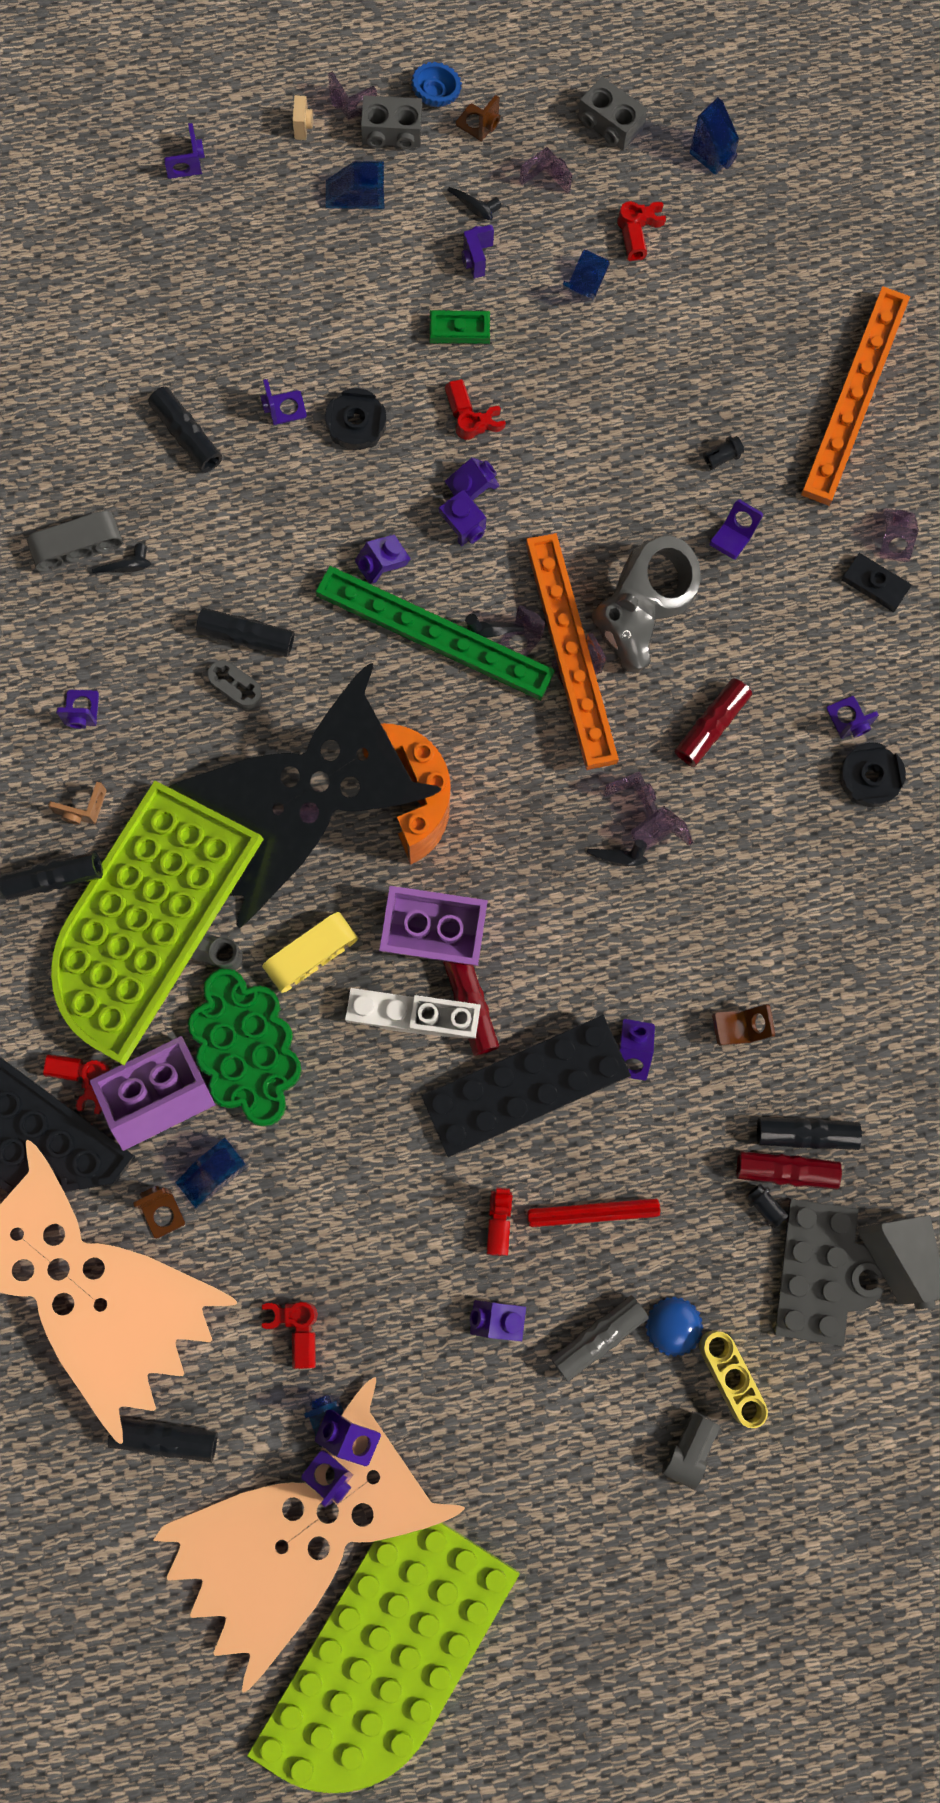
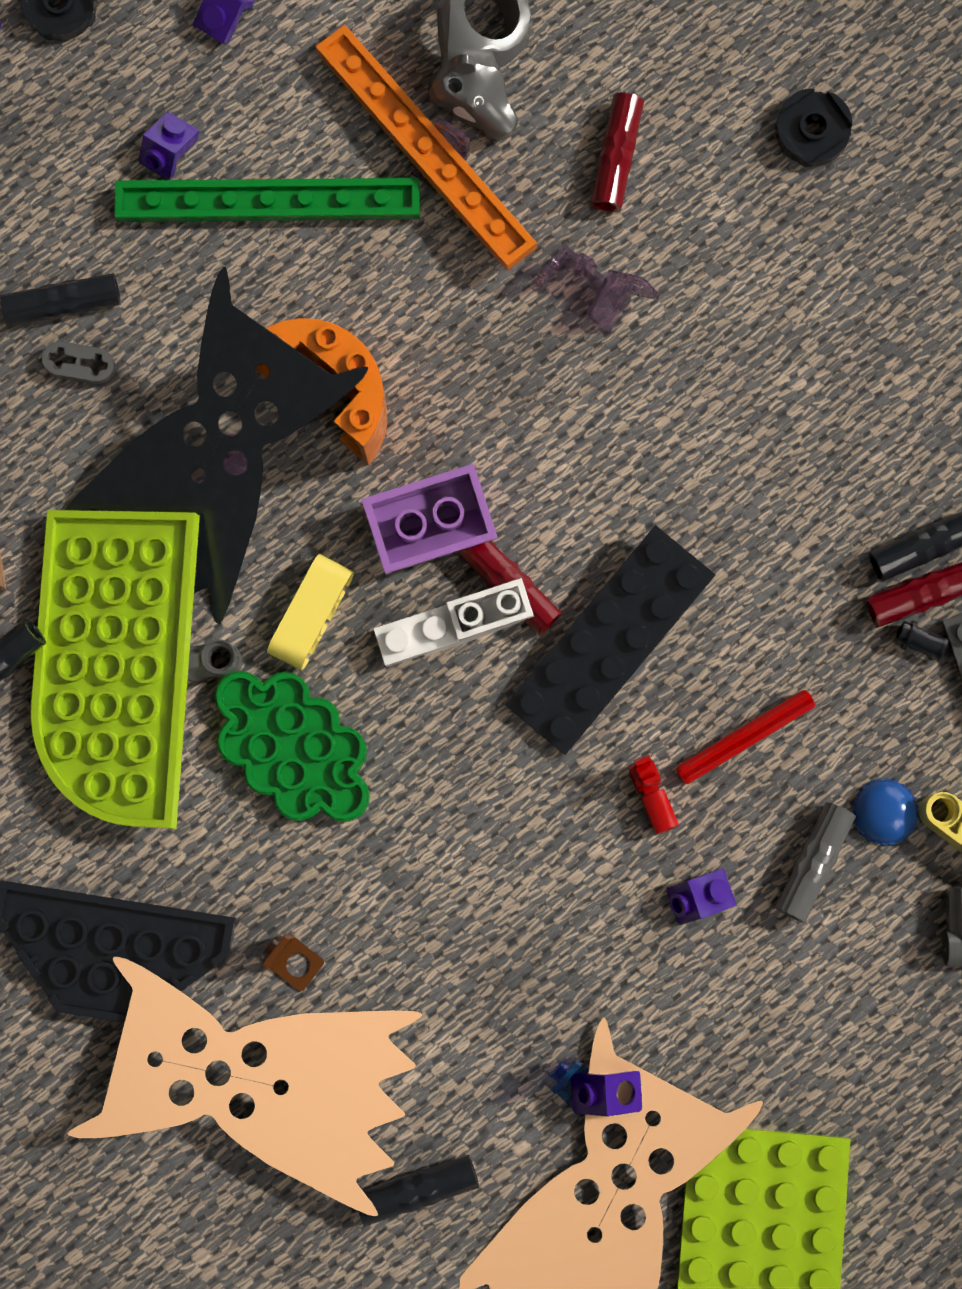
camera: 20 degrees left, 5 degrees up
(72, 1069) = (118, 861): red bar -> none
(151, 1093) = (220, 842): medium lavender slope -> none
(212, 1172) = (325, 894): clear blue slope -> none
(302, 1316) = (511, 1019): red bar -> none
(338, 1488) = (623, 1146): dark purple bracket -> none
(464, 518) = (235, 56): dark purple bracket -> none
(491, 628) = (326, 165): black bar -> none
(533, 629) = (367, 142): bracket -> none
(620, 857) = (590, 347): black bar -> none
(638, 1043) = (706, 537): dark purple bracket -> none
(740, 1026) = (804, 467): reddish brown bracket -> none
(859, 726) = (774, 81): dark purple bracket -> none

